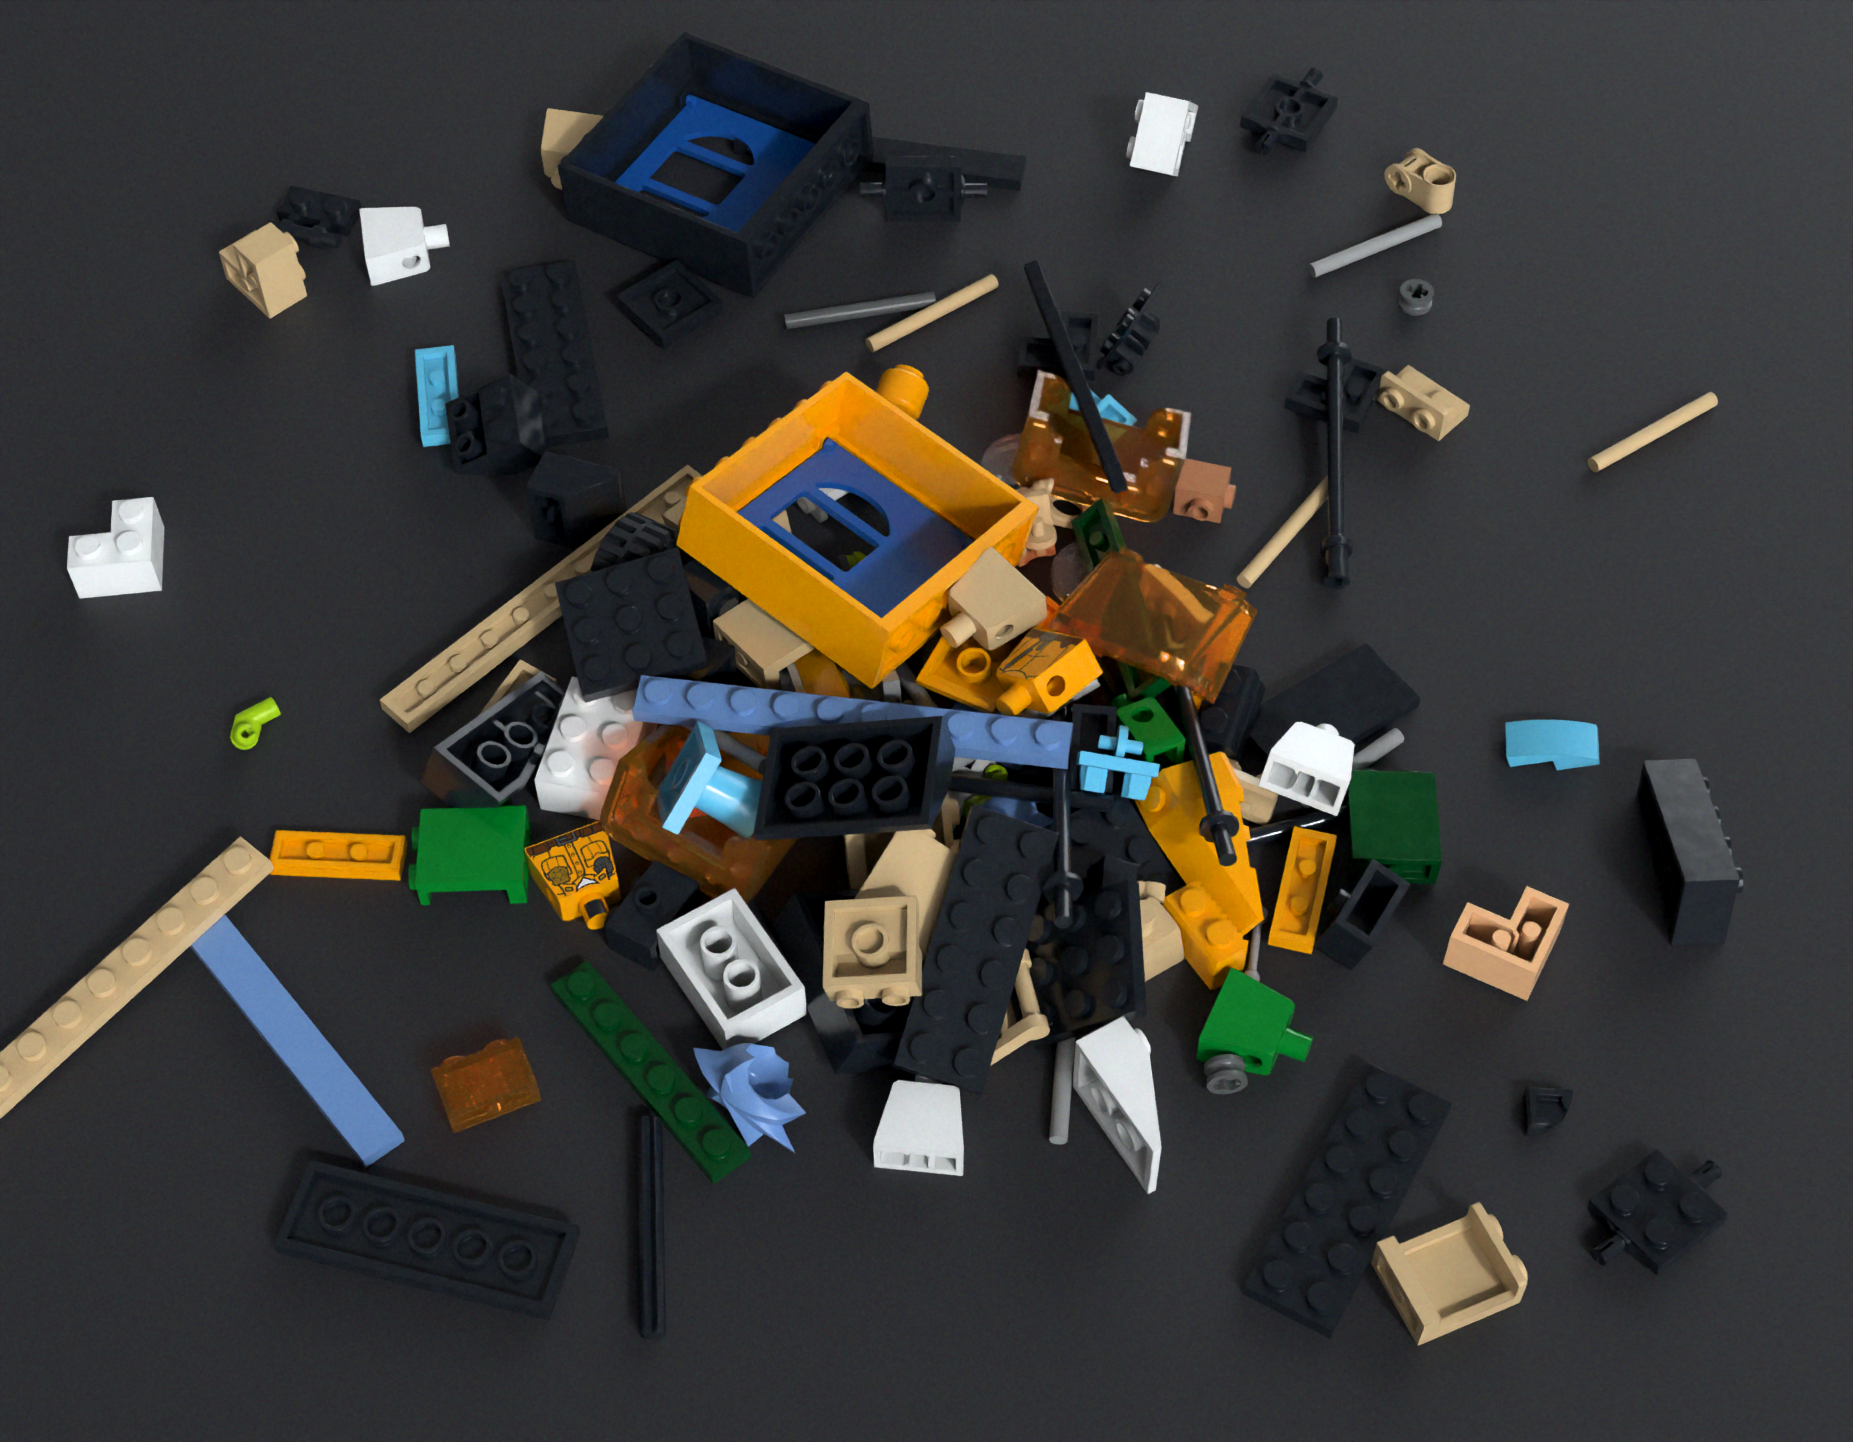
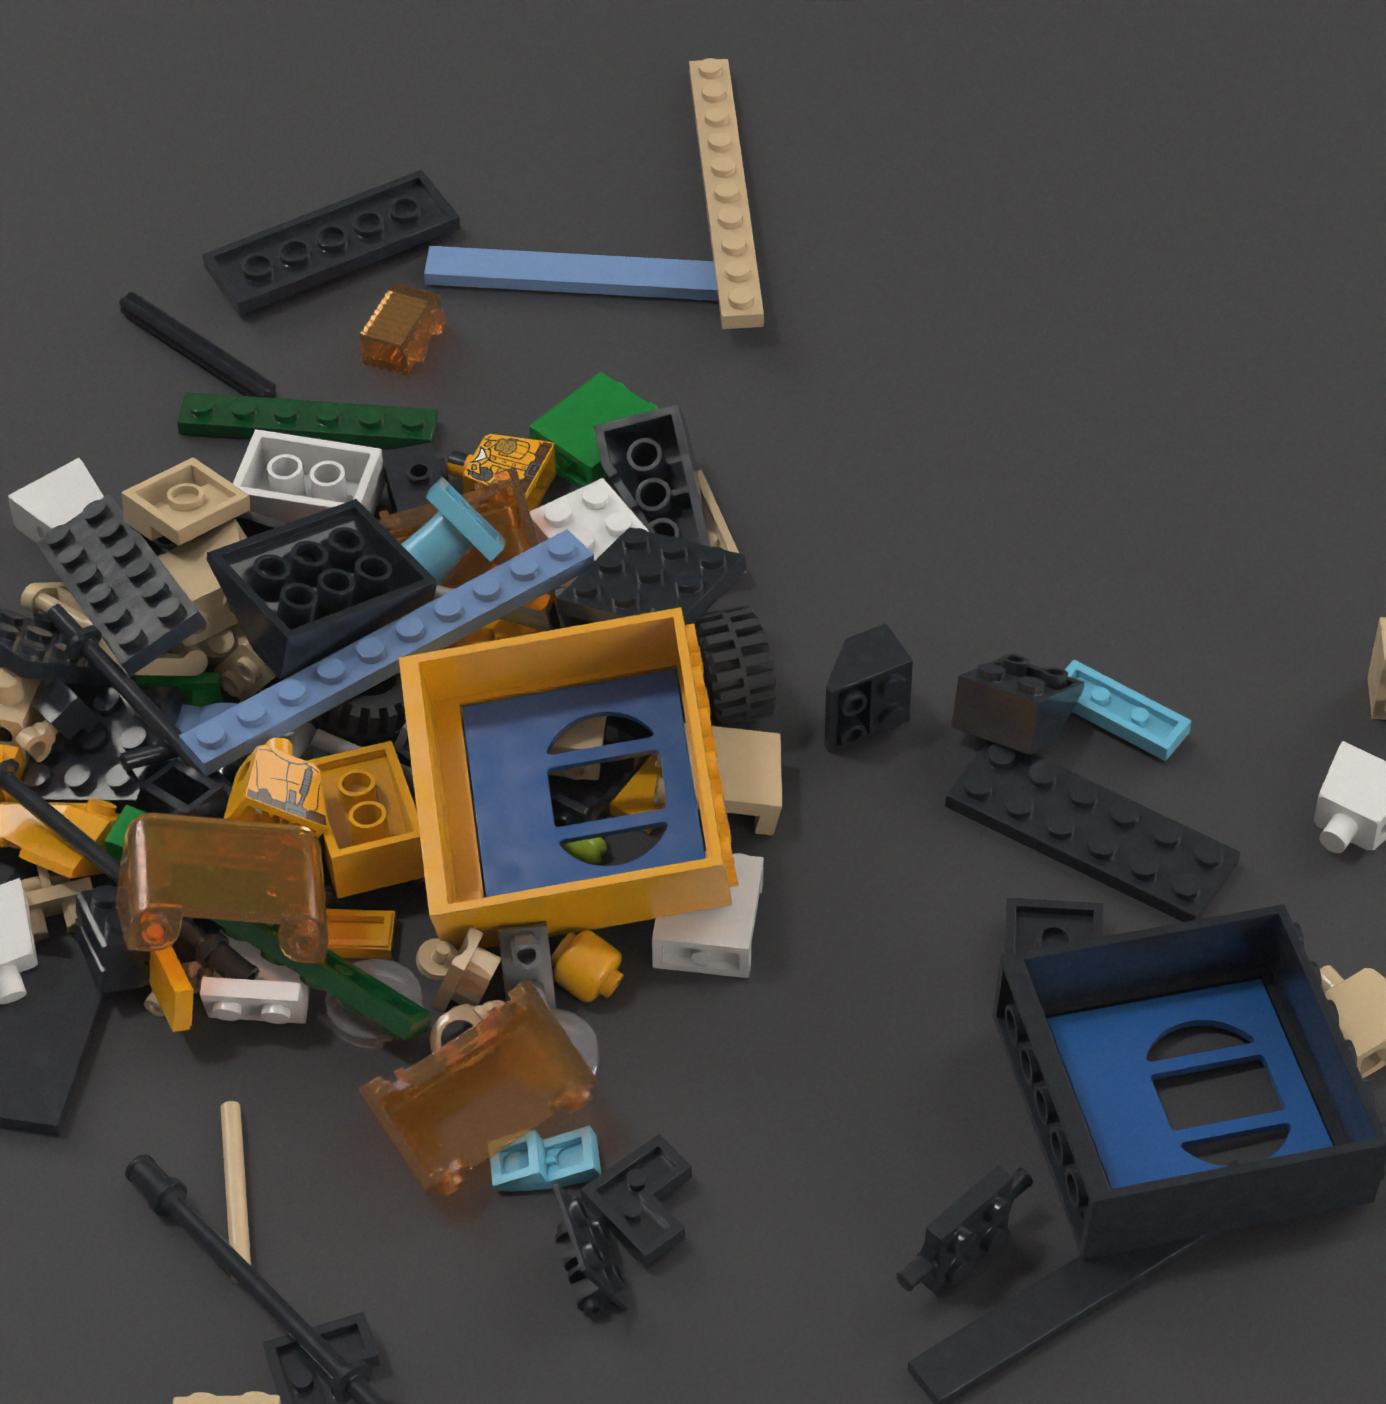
camera: 135 degrees right, 5 degrees down
(123, 559) = (1148, 415): white brick -> none
(249, 722) = (884, 398): lime arm -> none
(338, 855) = (705, 376): light orange tile -> none
(511, 624) = (796, 645): tan plate -> none
(753, 1088) = (210, 436): medium blue hair -> none
(859, 310) = (885, 1092): dark grey bar -> none
(904, 388) = (731, 1019): light orange head -> none
(931, 313) = (816, 1147): tan bar -> none
(992, 603) = (374, 808): tan torso -> none
(1076, 378) = (574, 1126): black tile -> none
(1136, 773) = (140, 774): medium azure hips -> none
(1203, 491) = (347, 1149): nougat brick -> none

